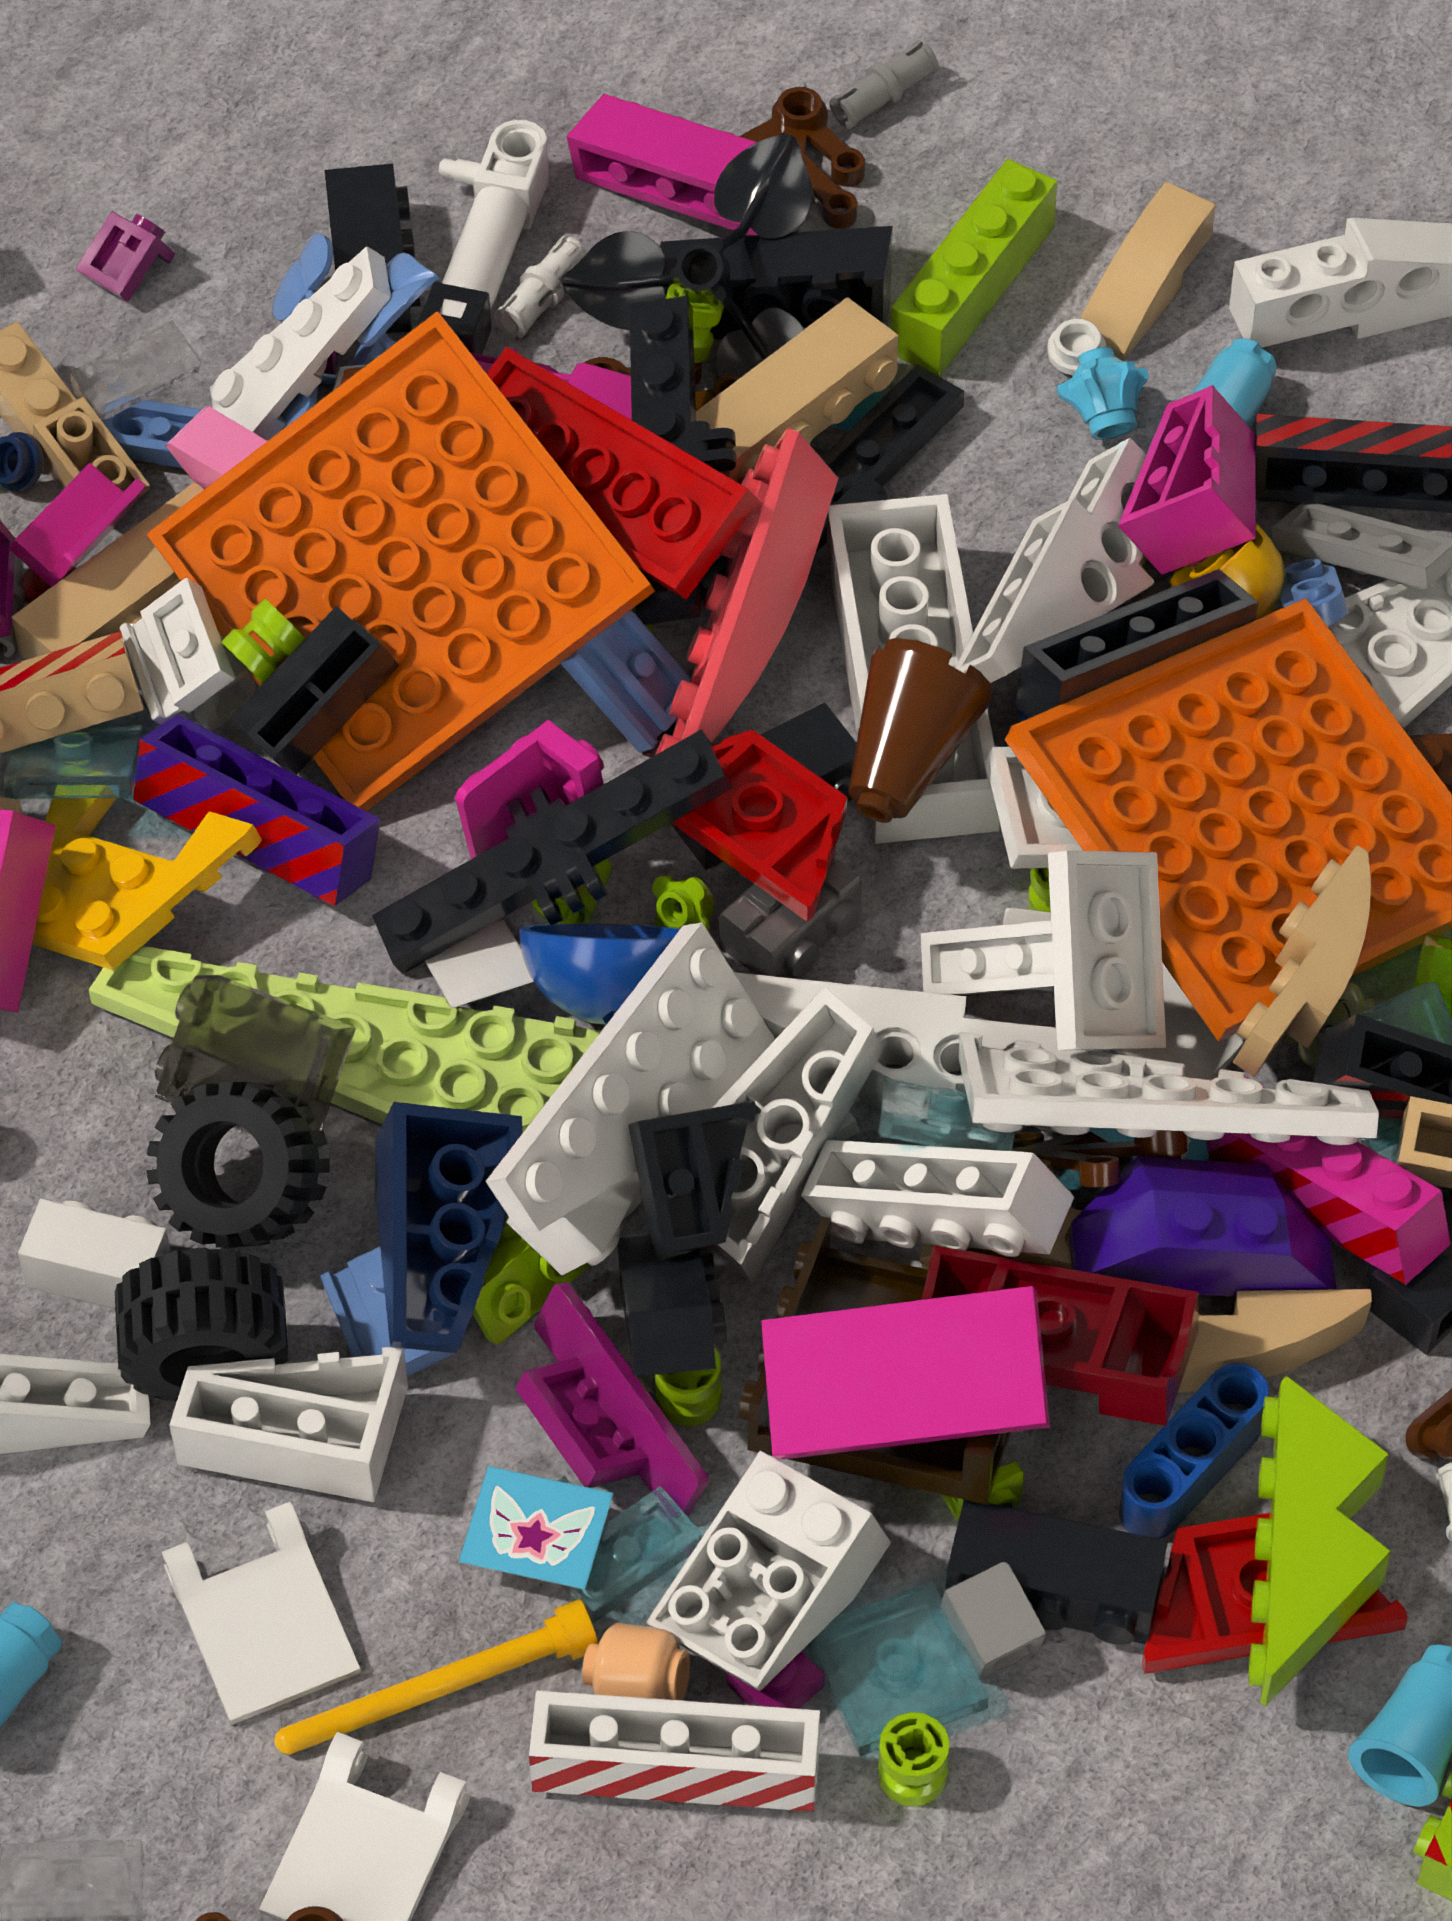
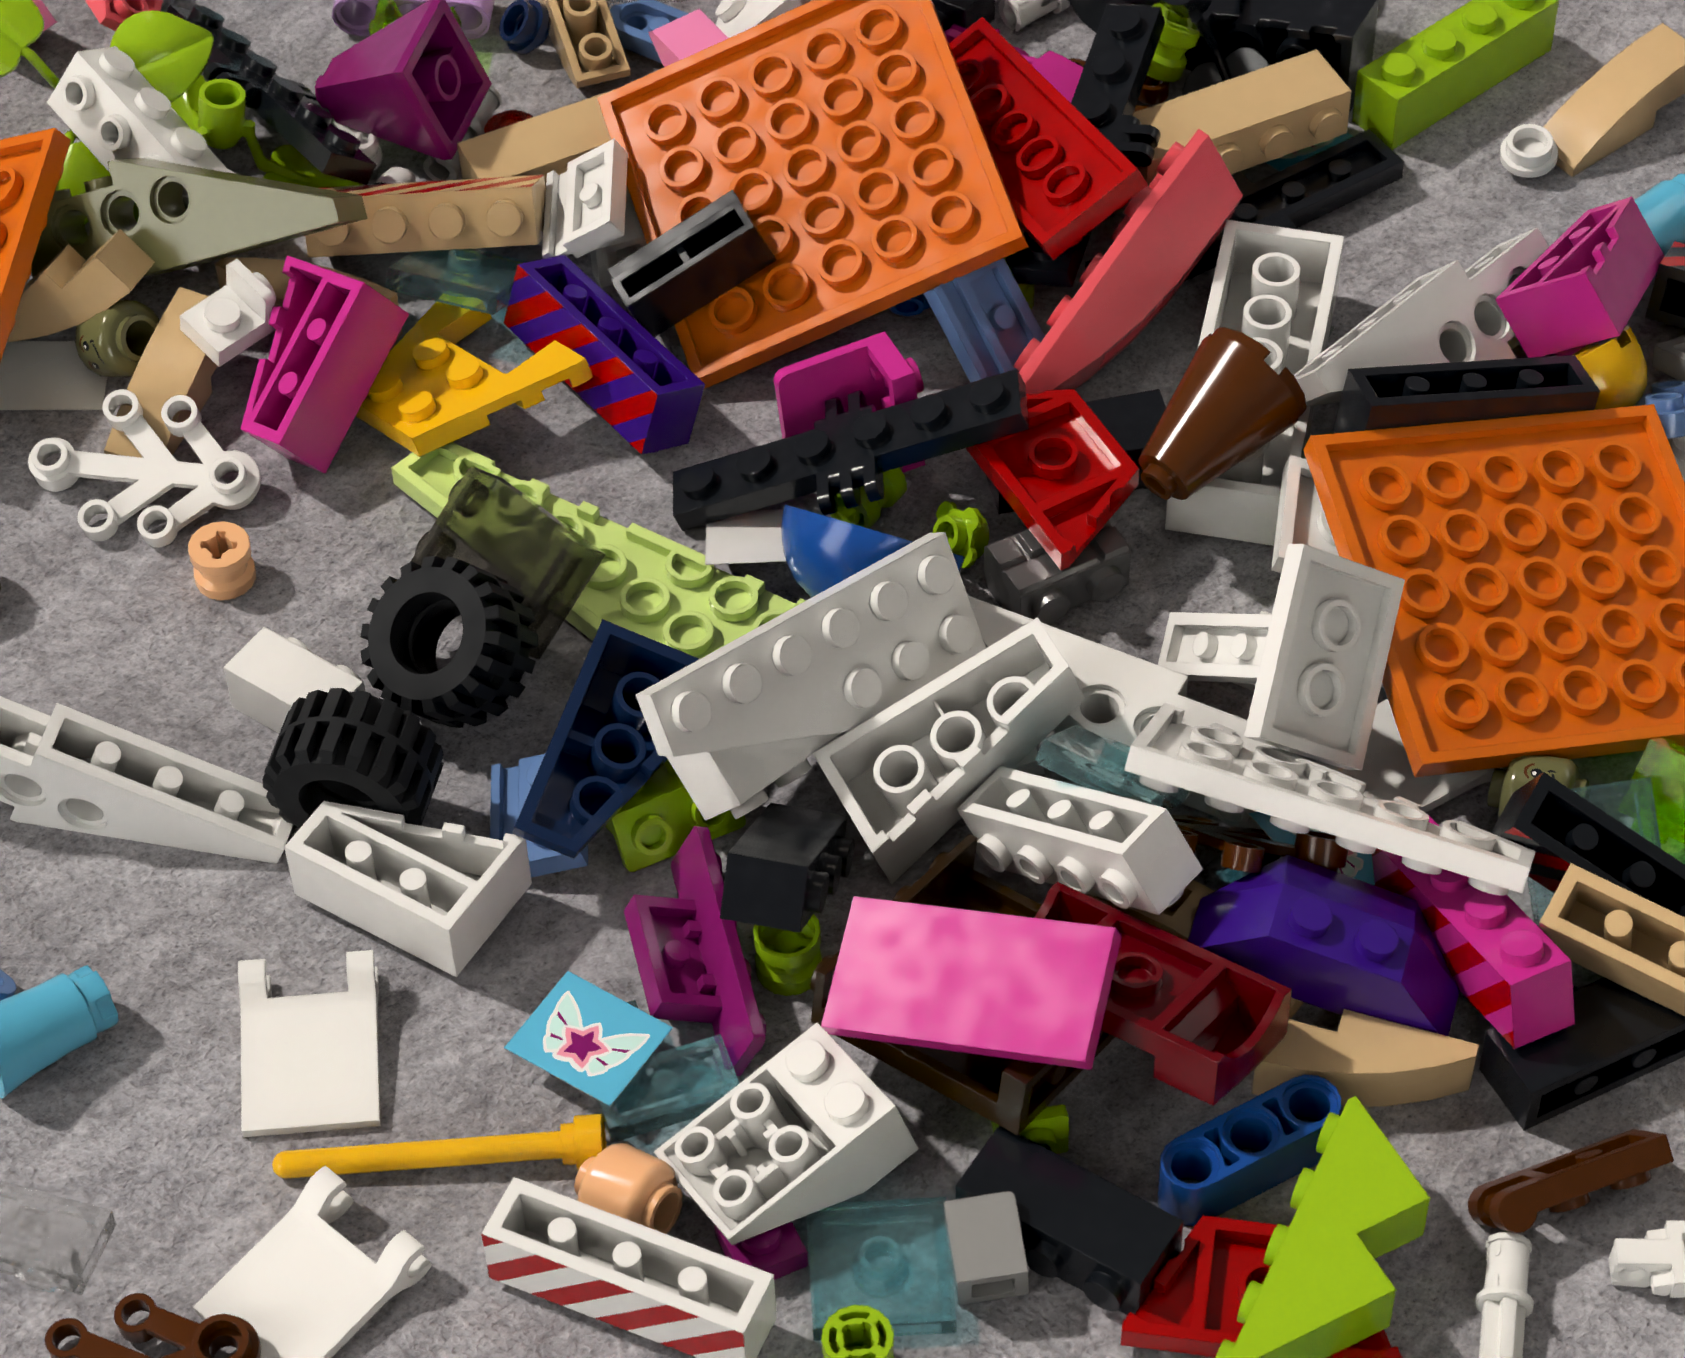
camera: 20 degrees right, 5 degrees down
(74, 524) = (546, 80): dark pink panel -> none
(273, 631) = (671, 200): lime wheel -> none
(689, 1173) = (849, 752): black wing -> none
(1105, 392) = (1538, 191): medium azure rock -> none
(1315, 961) = (1529, 729): tan slope -> none

